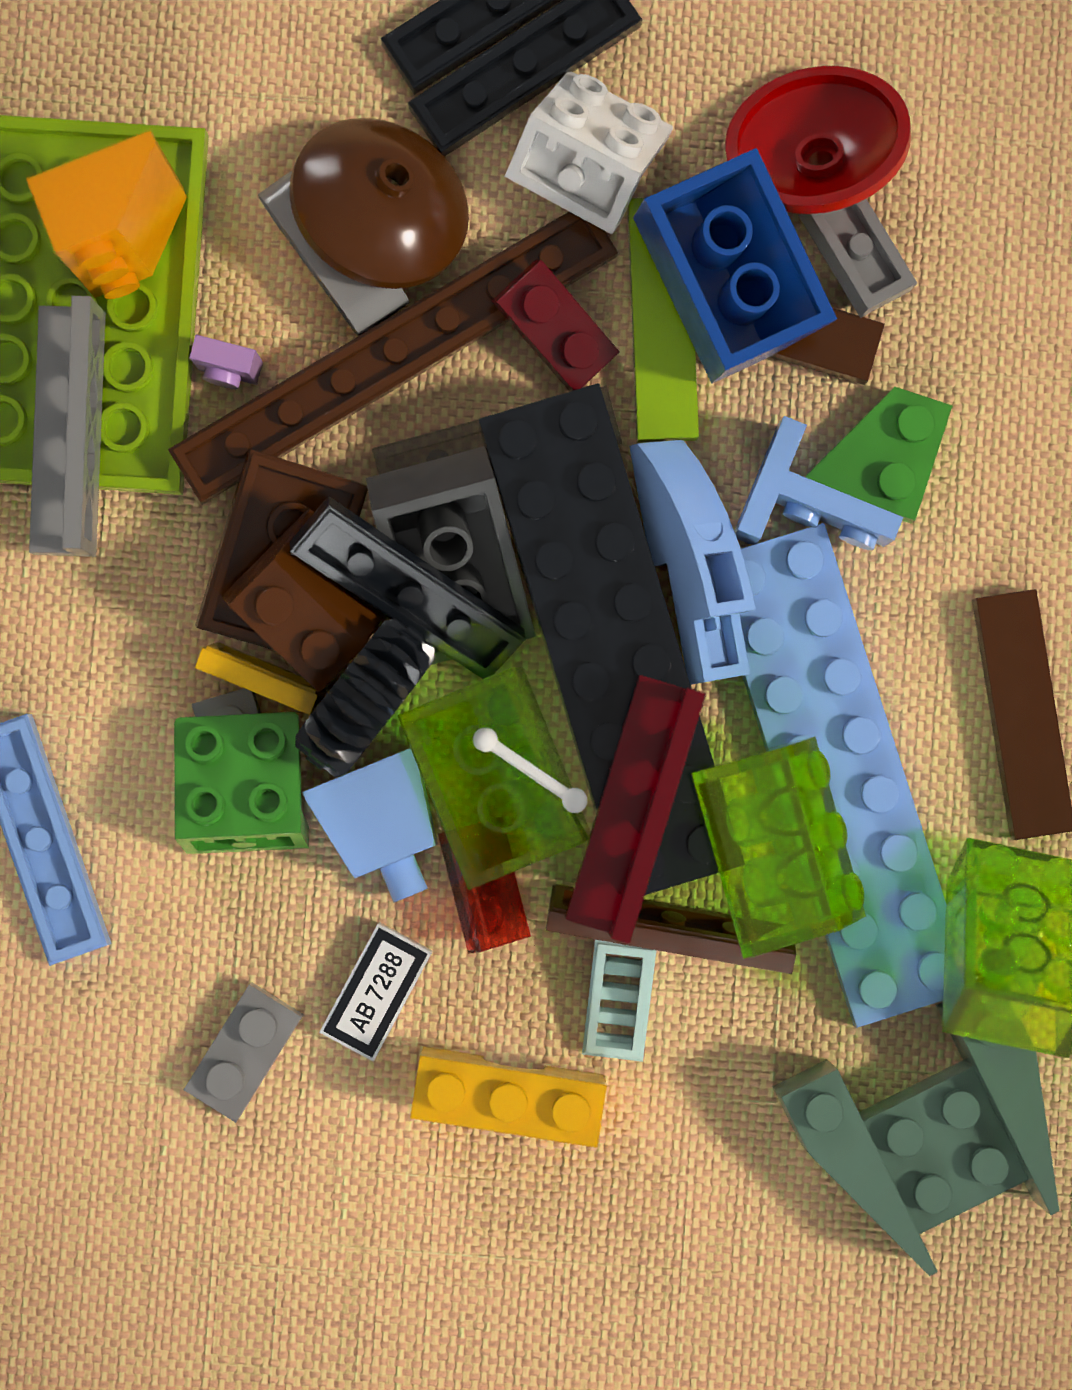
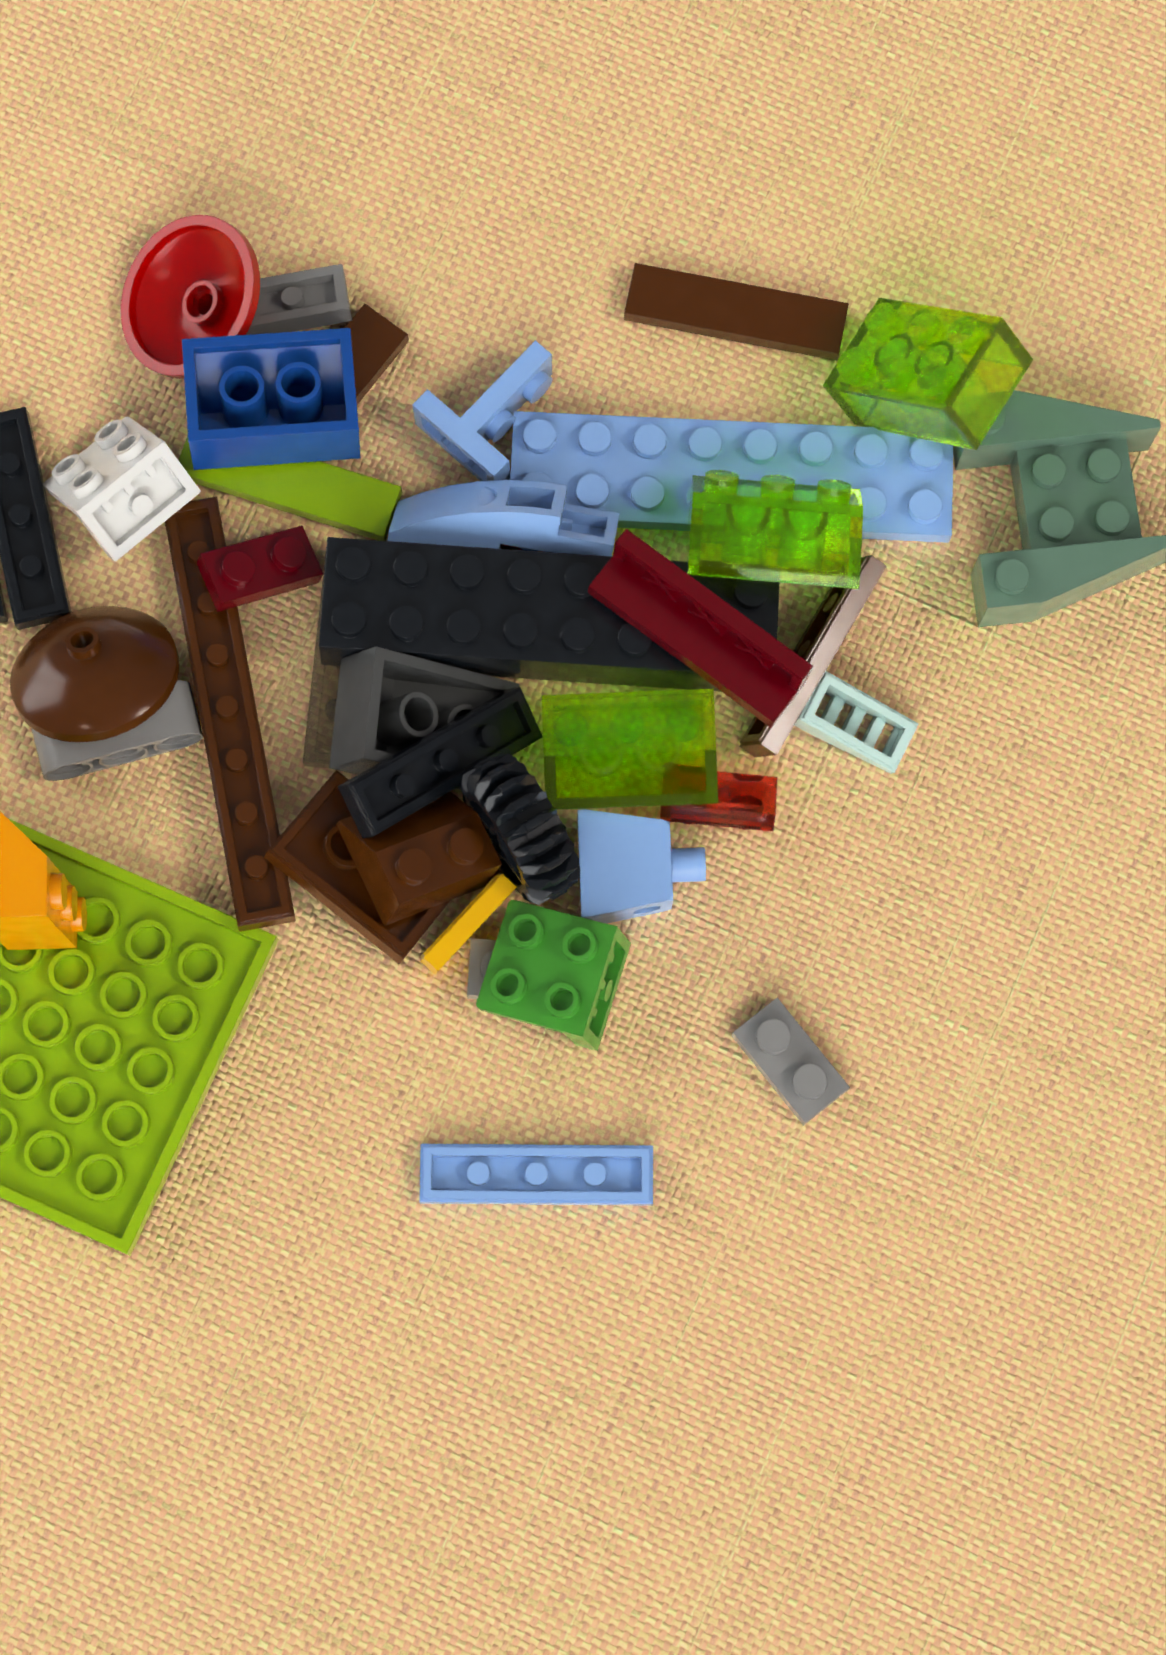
camera: 65 degrees left, 10 degrees down
(67, 429) = (185, 1007): light grey fence -> none
(225, 362) = (178, 856): lavender plate -> none
(376, 991) = (778, 927): tile -> none
(508, 1099) = (908, 840): yellow arch -> none
(573, 799) = (673, 682): white hinge -> none
(888, 453) = (473, 338): bright green wing -> none

